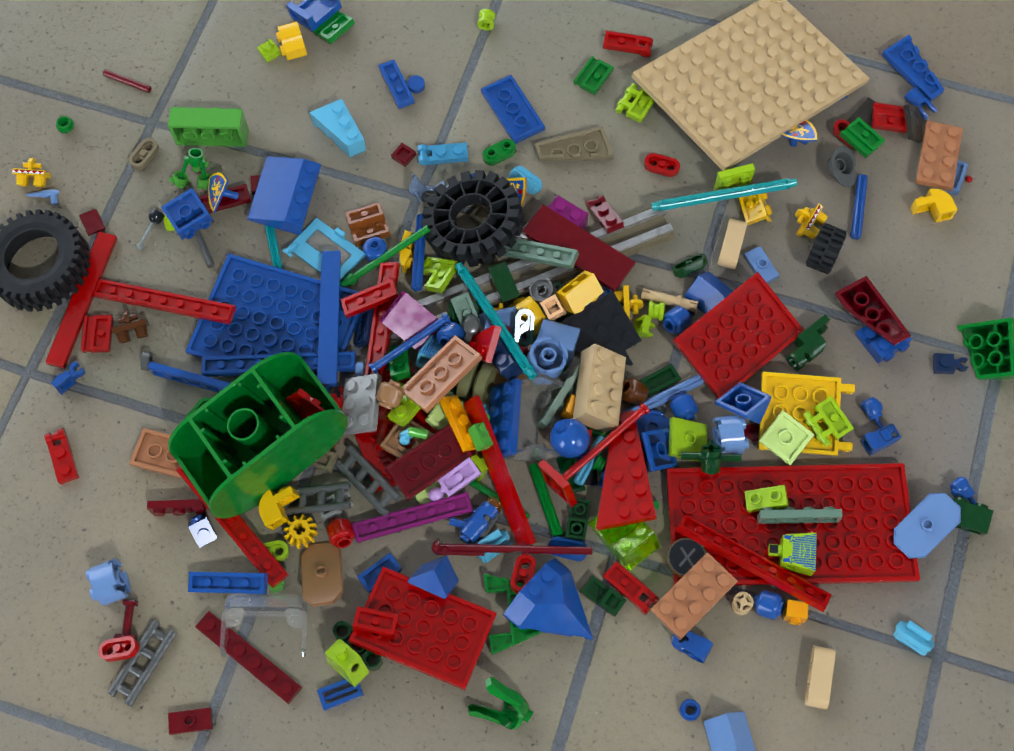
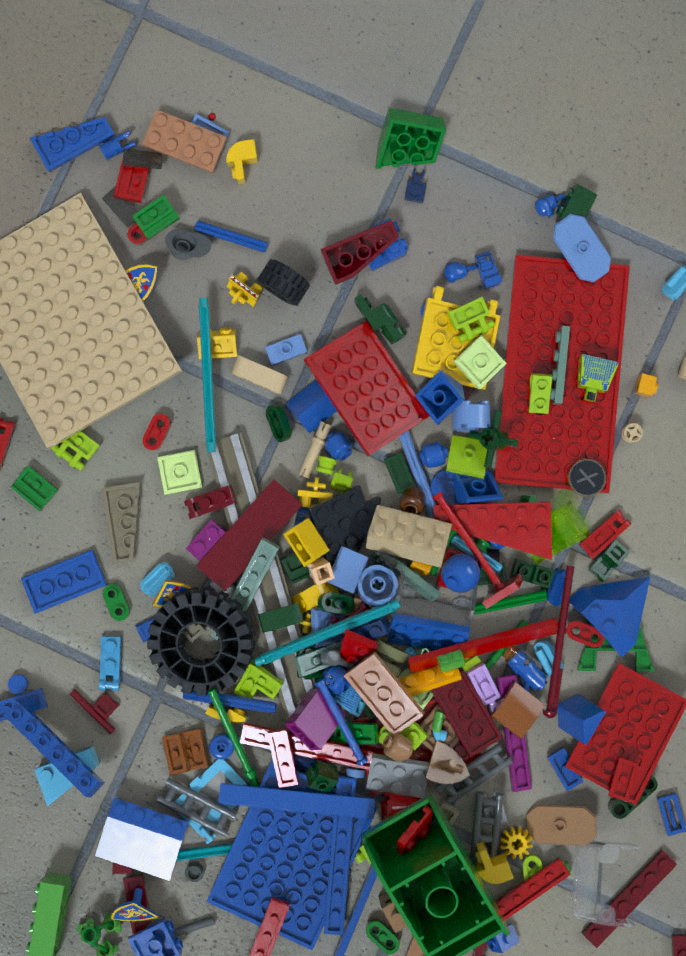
camera: 85 degrees left, 20 degrees up
(228, 582) = (560, 915): blue plate -> none
(255, 243) = (194, 872): none -> pearl dark grey plate
(319, 247) = (191, 796): none -> dark grey bar
(340, 532) = (521, 803): red head -> none
(343, 658) = (651, 808): lime torso -> none
(354, 335) = (322, 776): none -> dark green brick
(361, 107) = (54, 749): none -> blue brick
(374, 446) = (446, 765): none -> medium nougat shield
(386, 156) = (88, 707): none -> dark red piece
(417, 189) = (153, 695): sand blue piece -> none
(436, 513) = (517, 710): none -> dark orange slope
(542, 289) = (297, 577): flat silver wheel -> none
(627, 190) = (179, 472): none -> yellowish green tile
(693, 596) = (626, 478): nougat plate -> none
(694, 646) = (667, 484): blue piece -> none
(734, 177) = (189, 354): lime plate -> none
(754, 563) = (598, 417): red tile -> none
(769, 604) = (636, 408): blue head -> none

